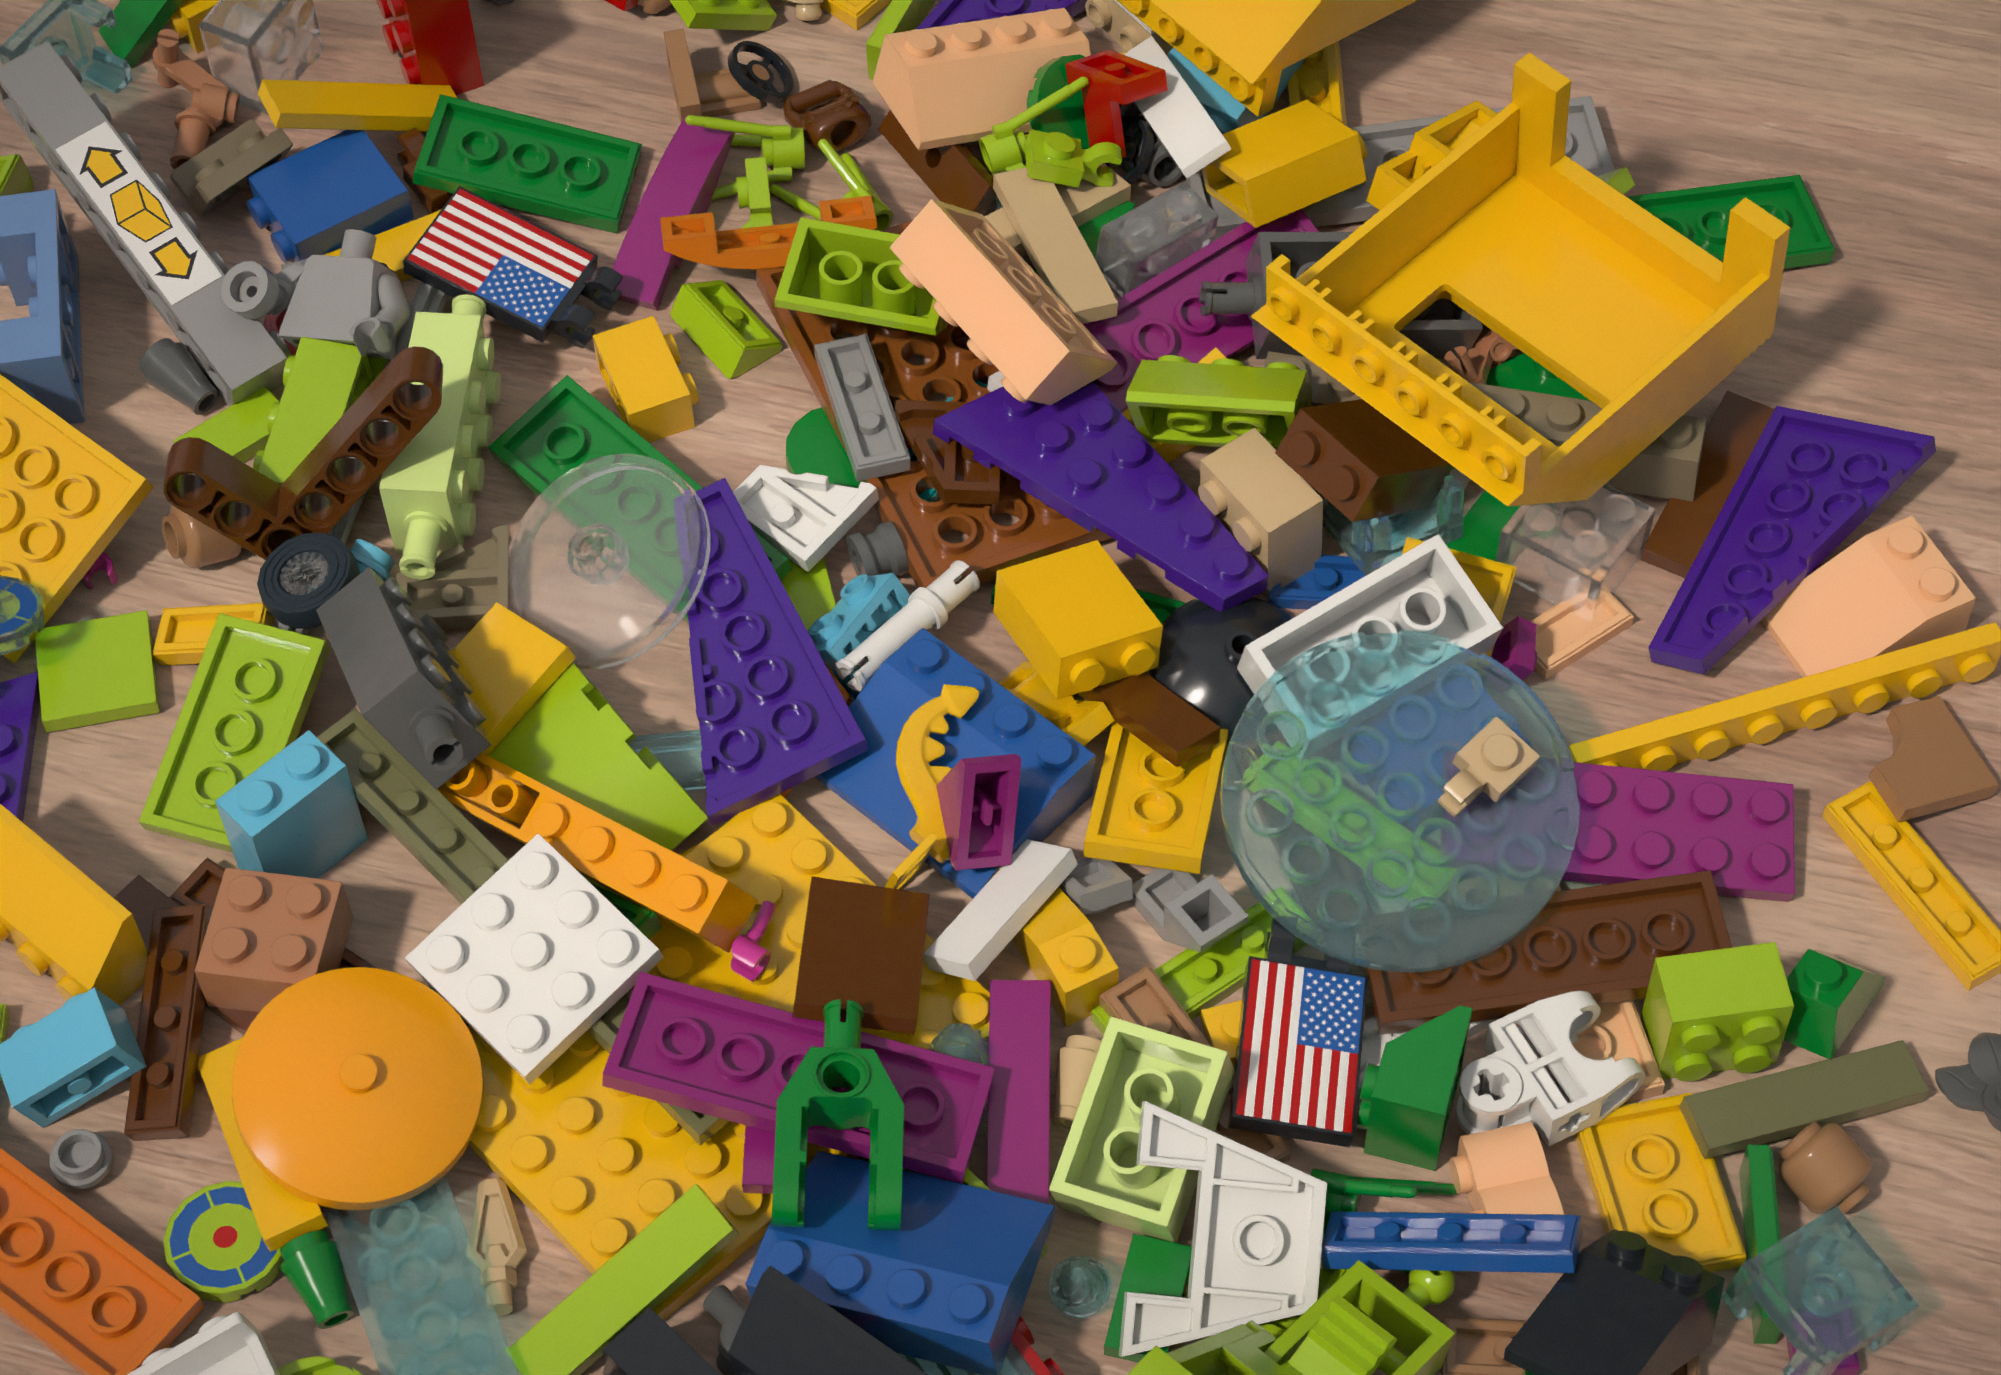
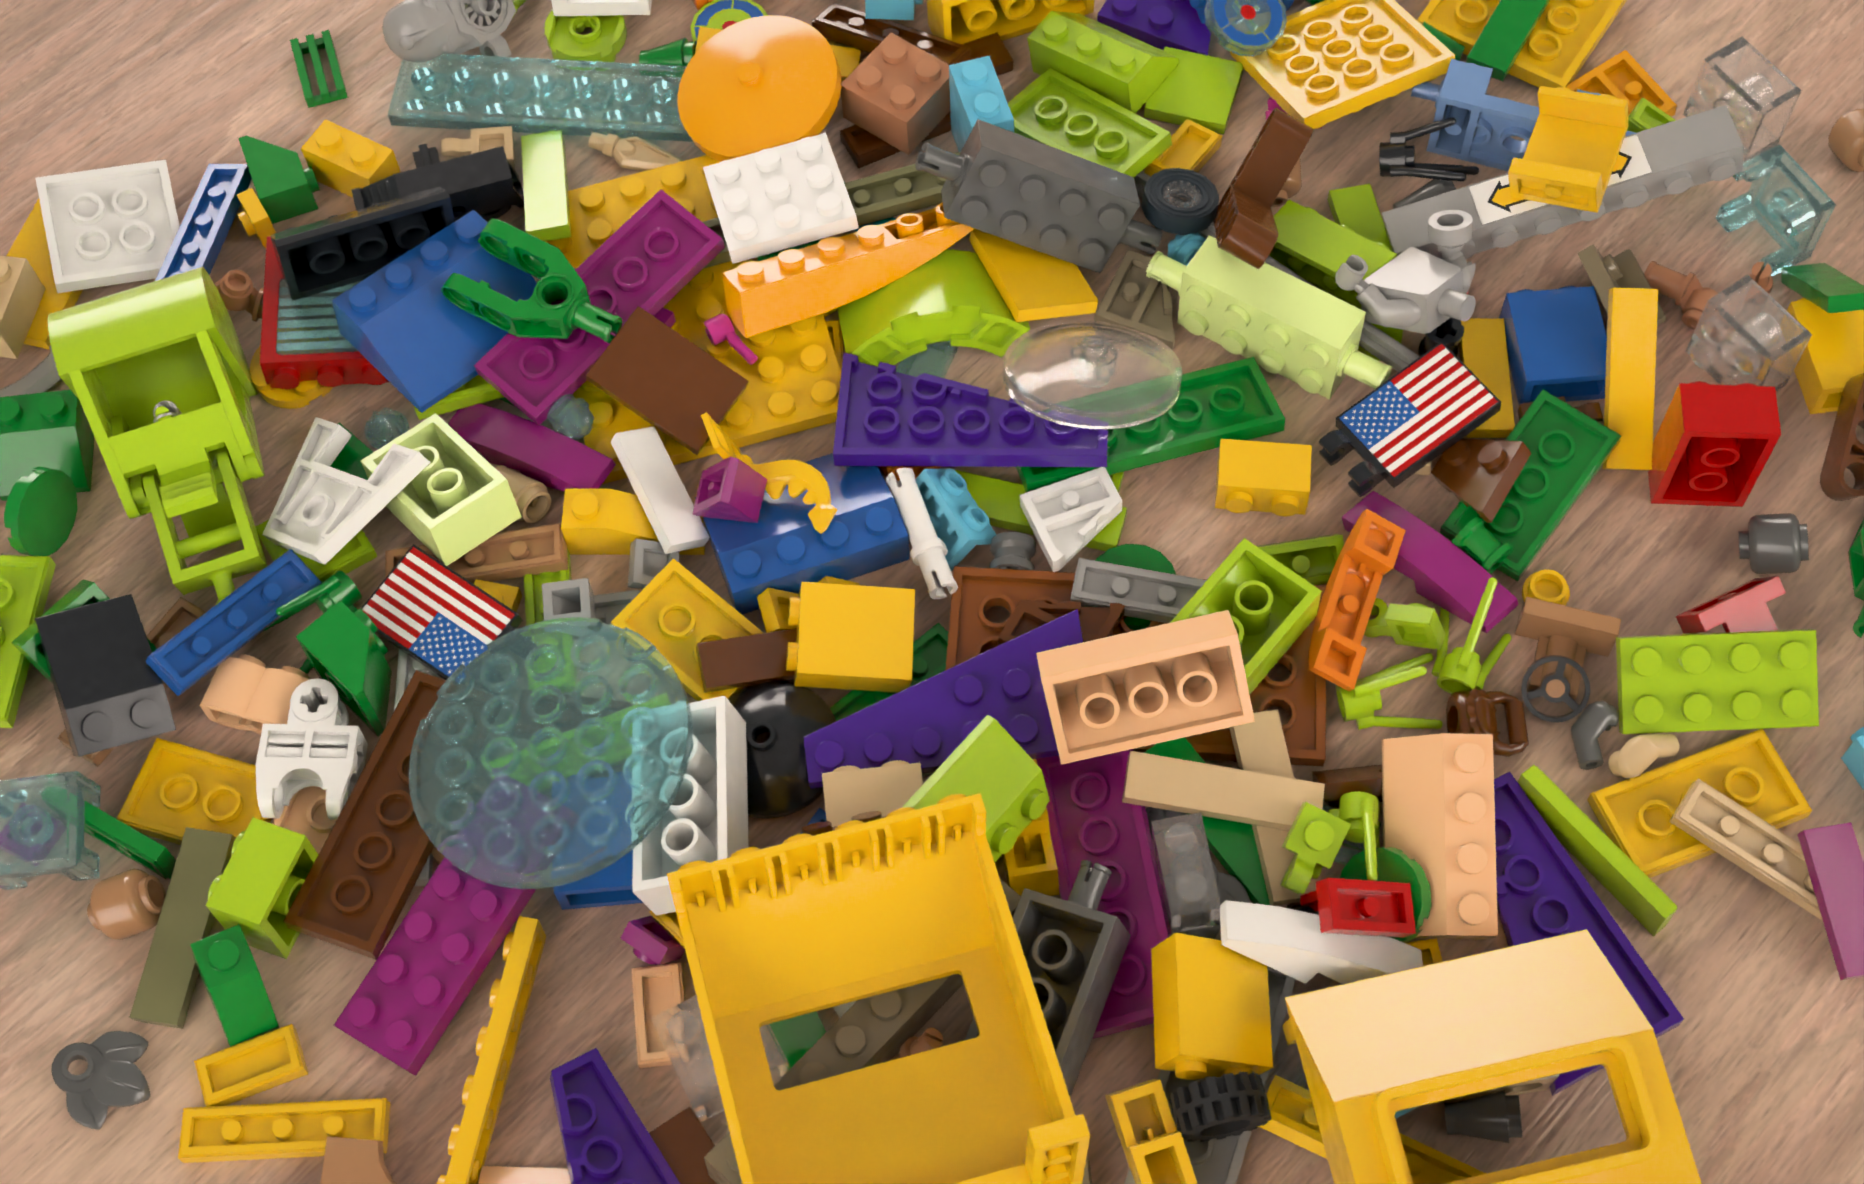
camera: 120 degrees right, 5 degrees up
(102, 765) = (1099, 58): none -> lime slope
(105, 202) = (1570, 149): none -> yellow panel
(126, 413) = (1399, 159): none -> black plant
(551, 183) = (1481, 472): none -> reddish brown wing
(635, 166) = (1482, 545): none -> green bush
(647, 119) = (1546, 586): none -> yellow plate
(787, 41) = (1587, 729): none -> dark grey arm
(1375, 113) = (1220, 1107): none -> black tyre
(1490, 764) = (522, 808): tan plate -> none
(1879, 944) = (251, 1067): none -> yellow tile

